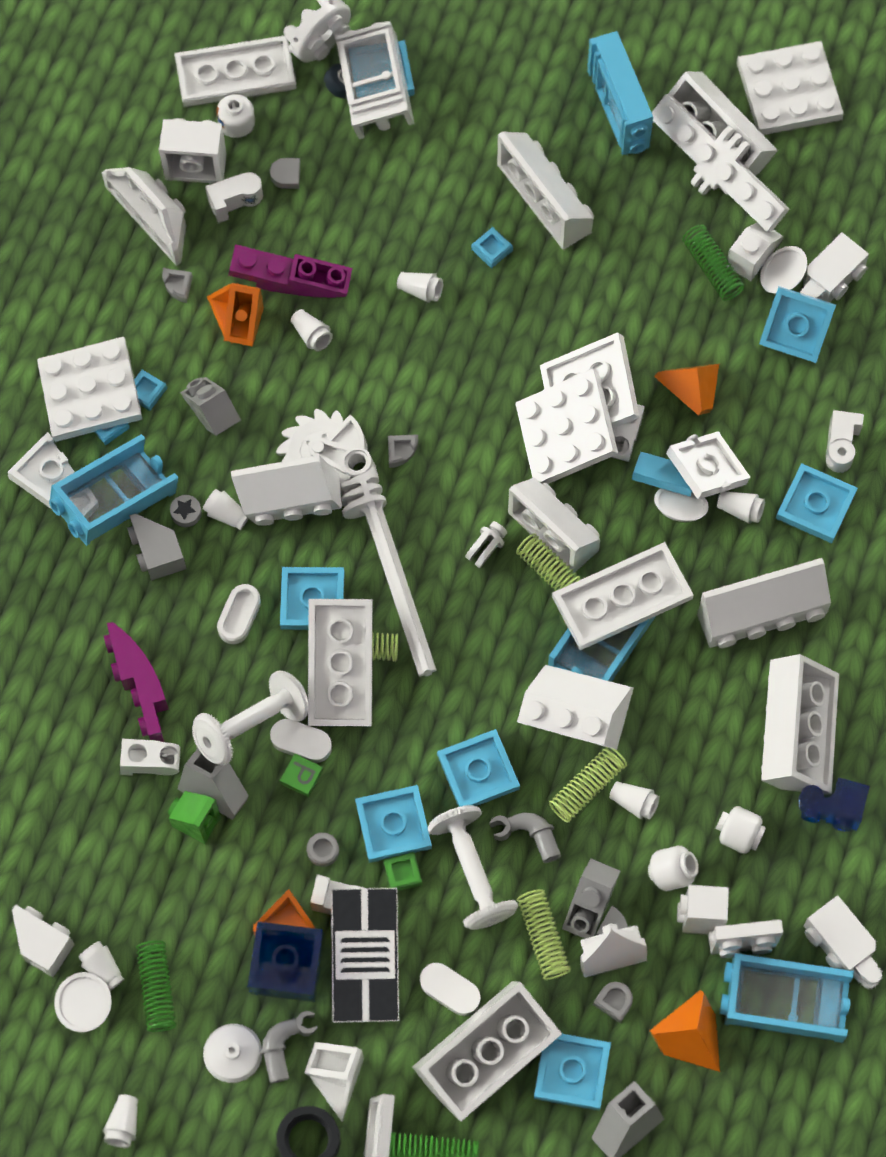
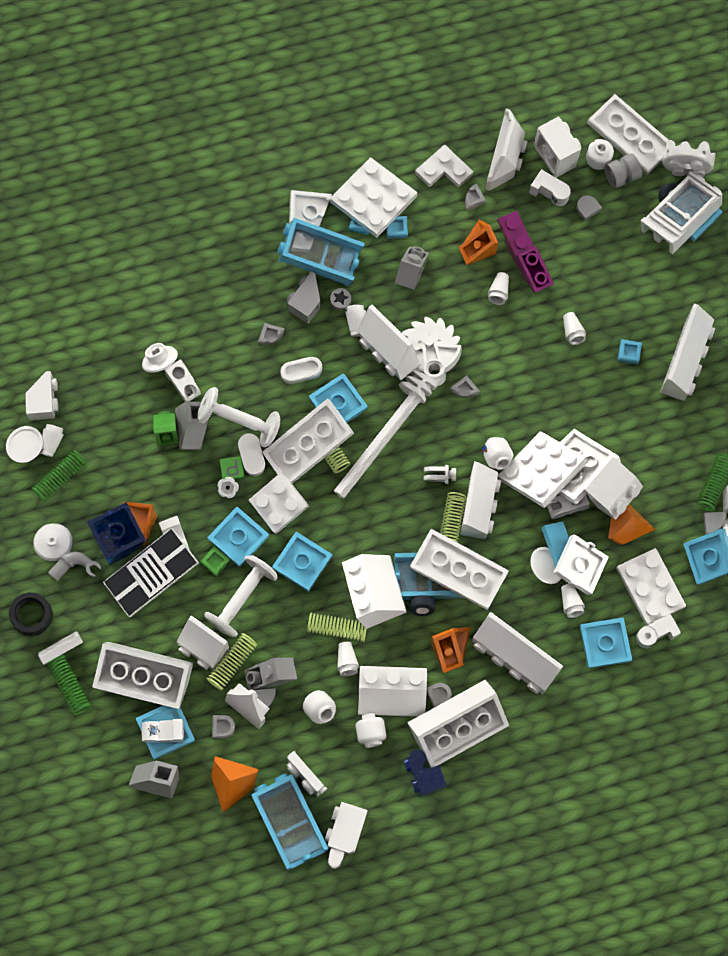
camera: 50 degrees right, 5 degrees up
(98, 765) = (158, 357): none -> white piece
(110, 285) = (444, 163): none -> white plate
(138, 676) = (226, 339): magenta slope -> none
(166, 619) = (270, 334): none -> light grey tile
(274, 105) = (624, 170): none -> light grey wheel
(322, 849) = (197, 509): light grey tile -> none
(329, 791) = (222, 487): none -> white plate
(335, 1073) = (77, 603): white slope -> none
(386, 748) = (278, 503): none -> white plate
(450, 989) = (166, 632): white tile -> none
(500, 952) = (202, 644): none -> white slope
(509, 464) = (497, 453): none -> white head
(538, 829) = (291, 617): light grey piece -> none
(578, 1070) = (163, 732): none -> white leg
(631, 669) = (422, 605): none -> black wheel
(649, 365) = (612, 487): none -> white slope
(703, 909) = (305, 739): white brick -> none
(704, 677) = (450, 647): none -> orange slope
(710, 773) = (392, 691): none -> white slope
(749, 725) = (439, 693): none -> light grey tile
(755, 297) = (713, 521): none -> light grey tile
(783, 412) = (651, 586): none -> white plate

